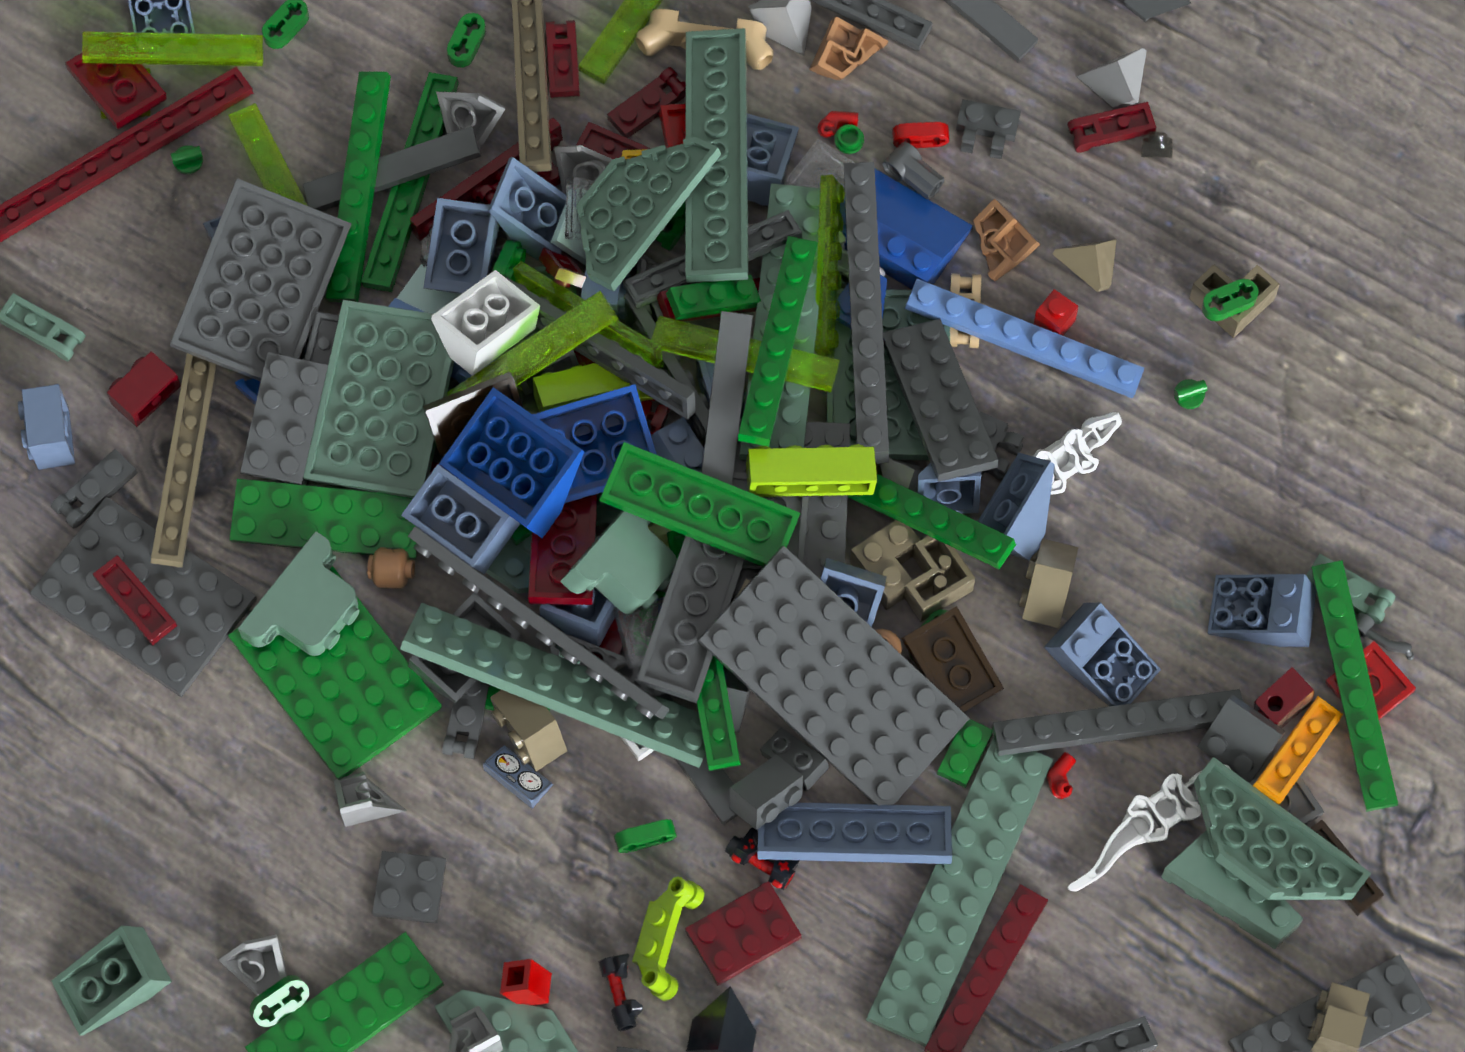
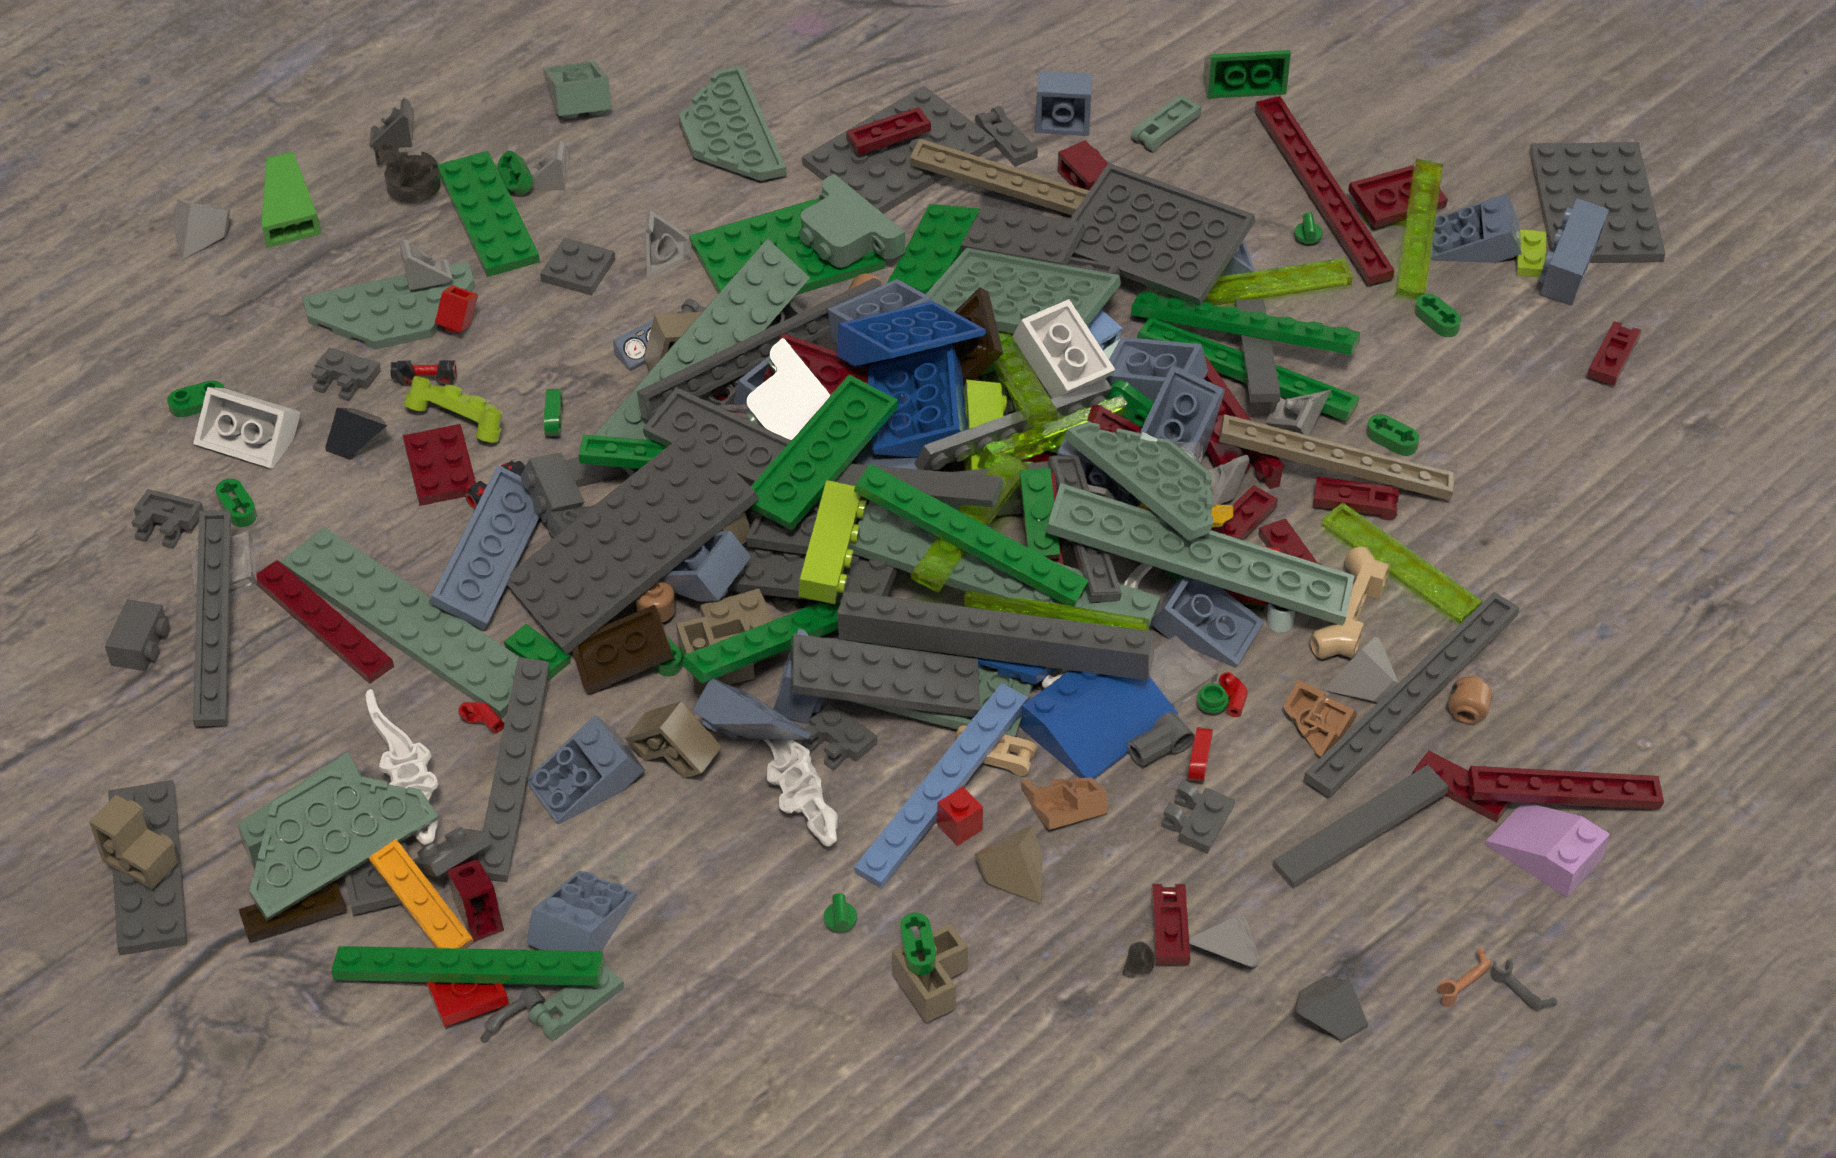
camera: 105 degrees right, 20 degrees down
(144, 788) = (730, 129): none -> sand green plate

